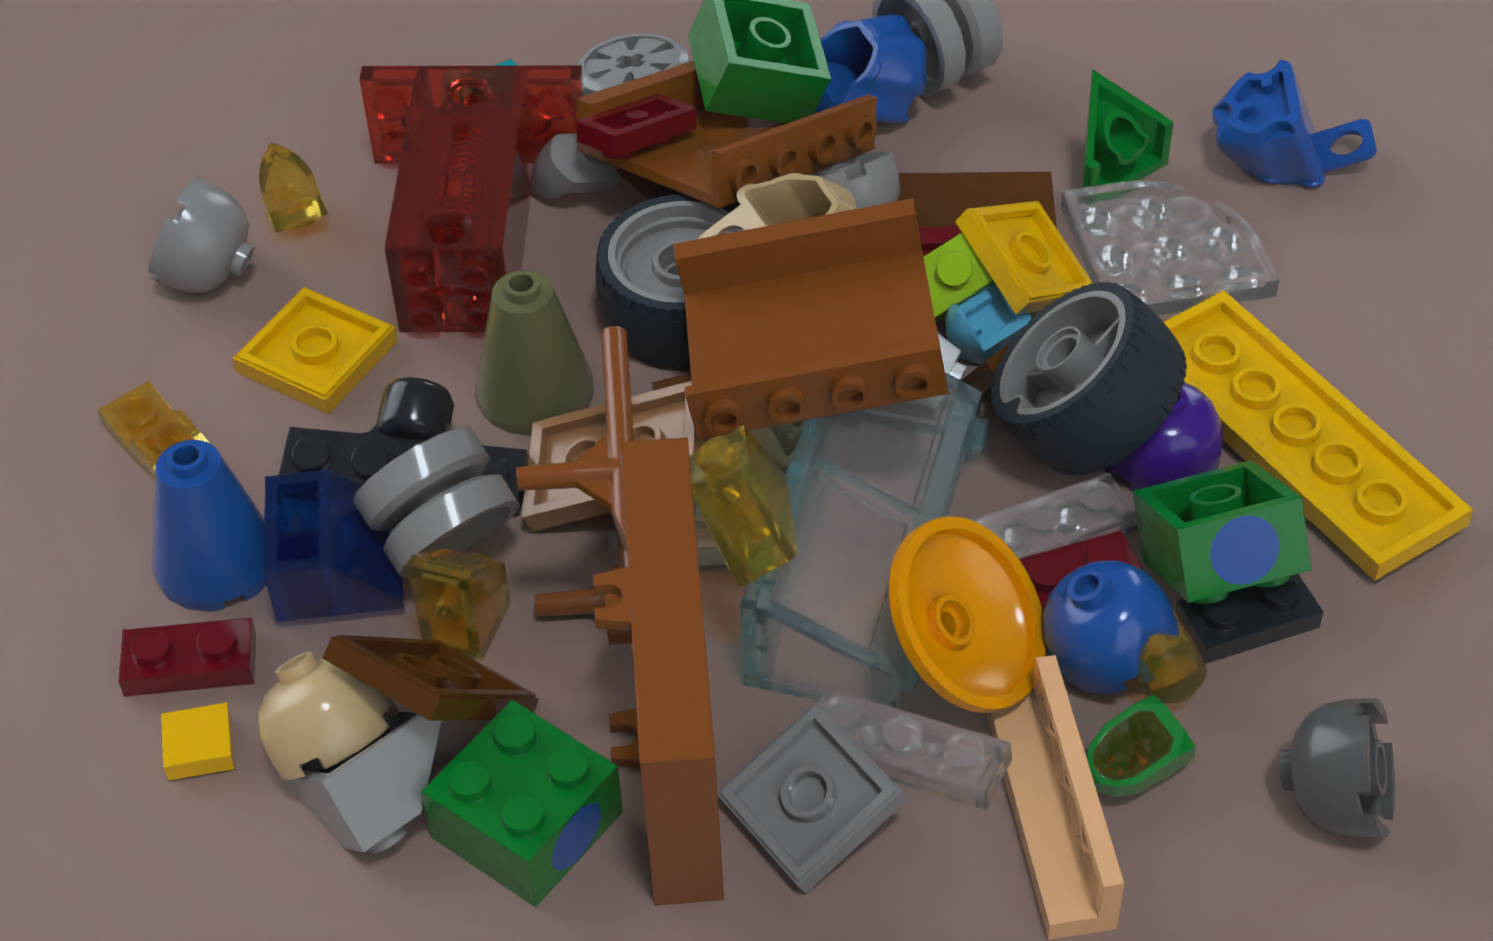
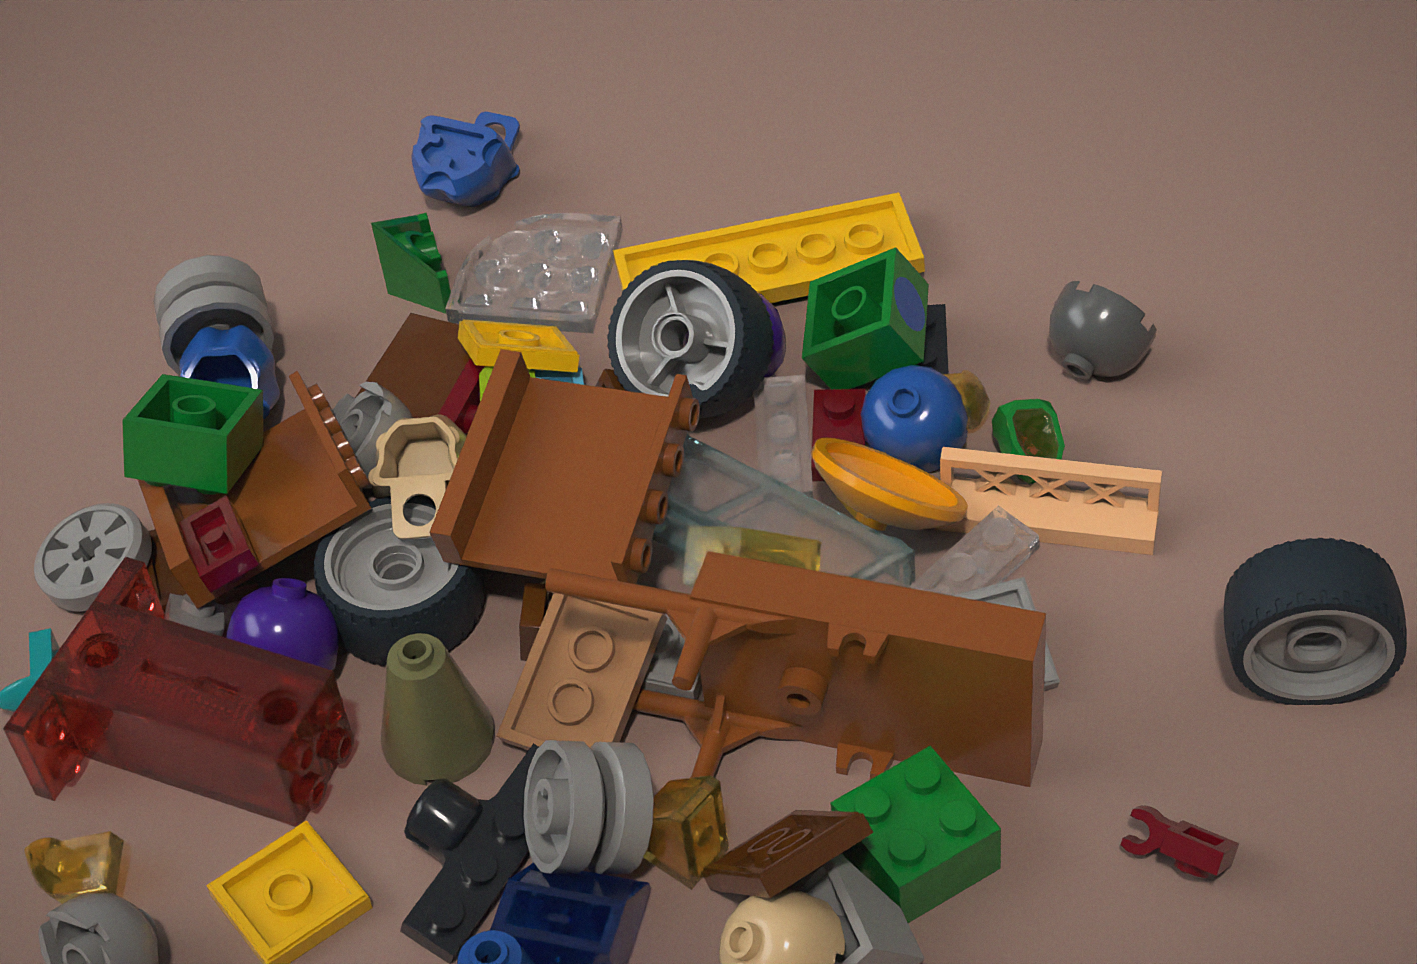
camera: 65 degrees left, 0 degrees up
(568, 217) = (287, 622): none -> dark purple cylinder

